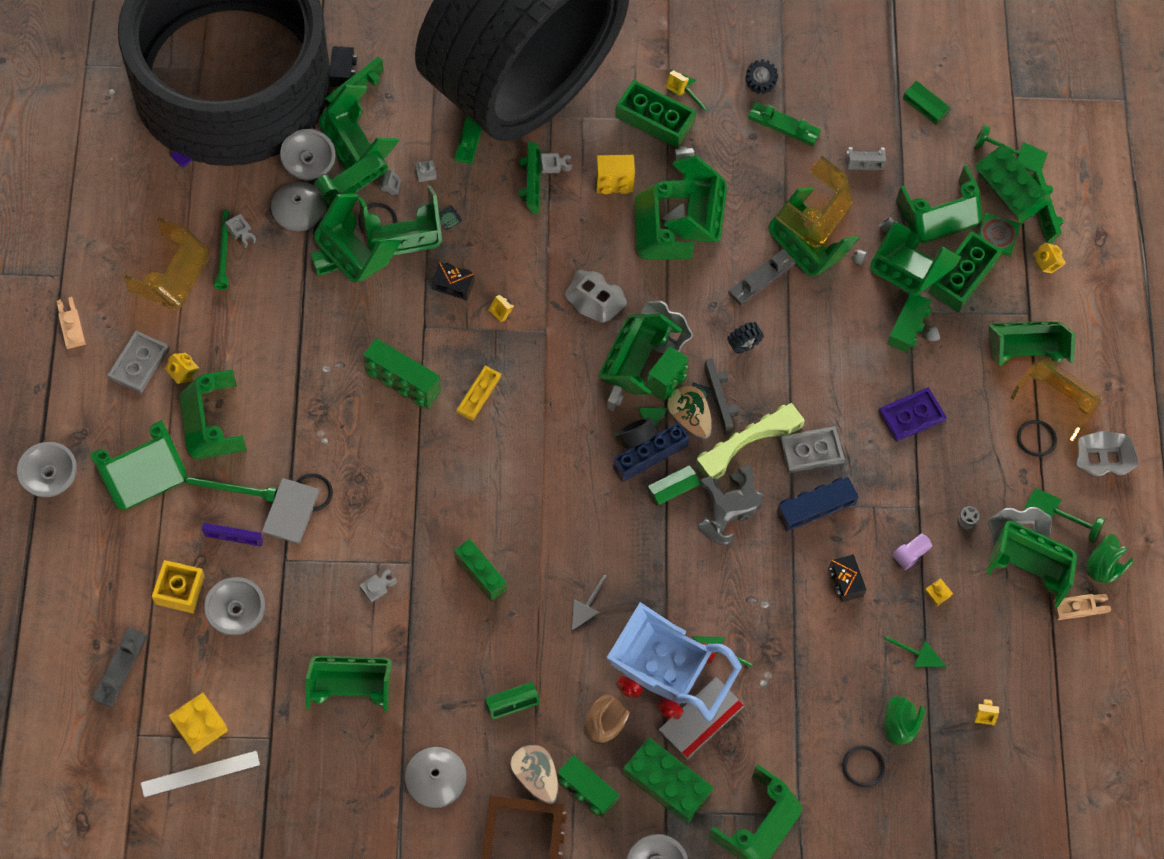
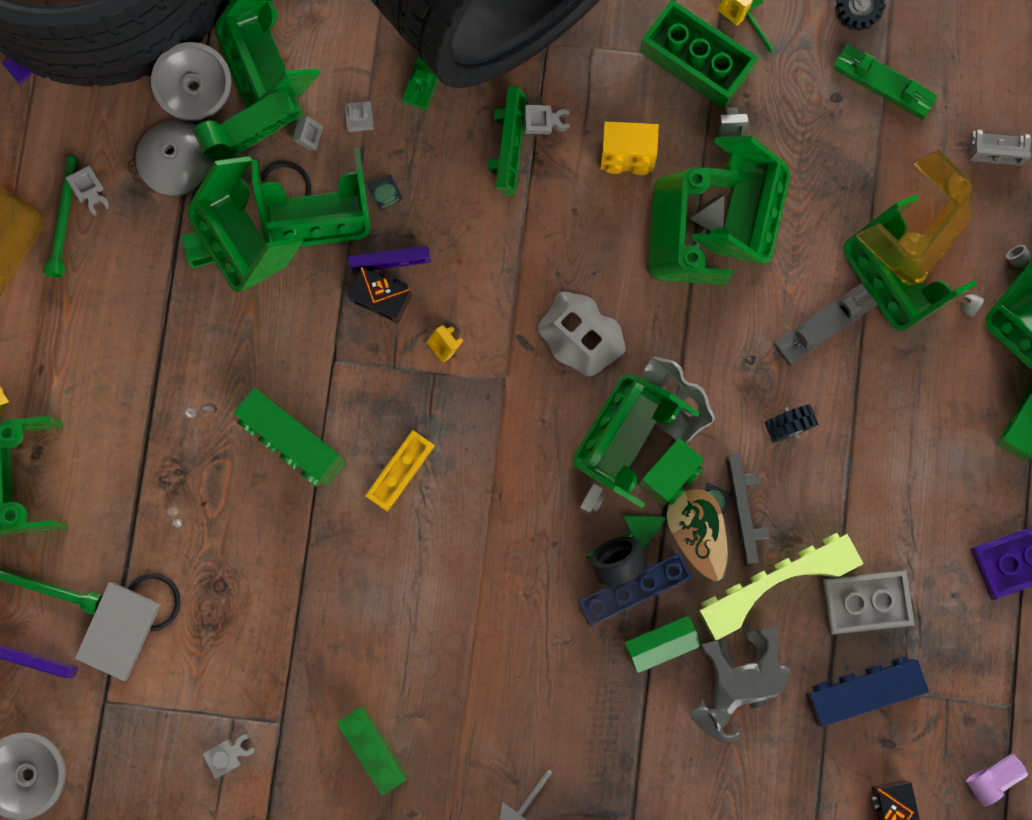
camera: 15 degrees right, 15 degrees up
(459, 257) = (390, 259): none -> dark purple tile

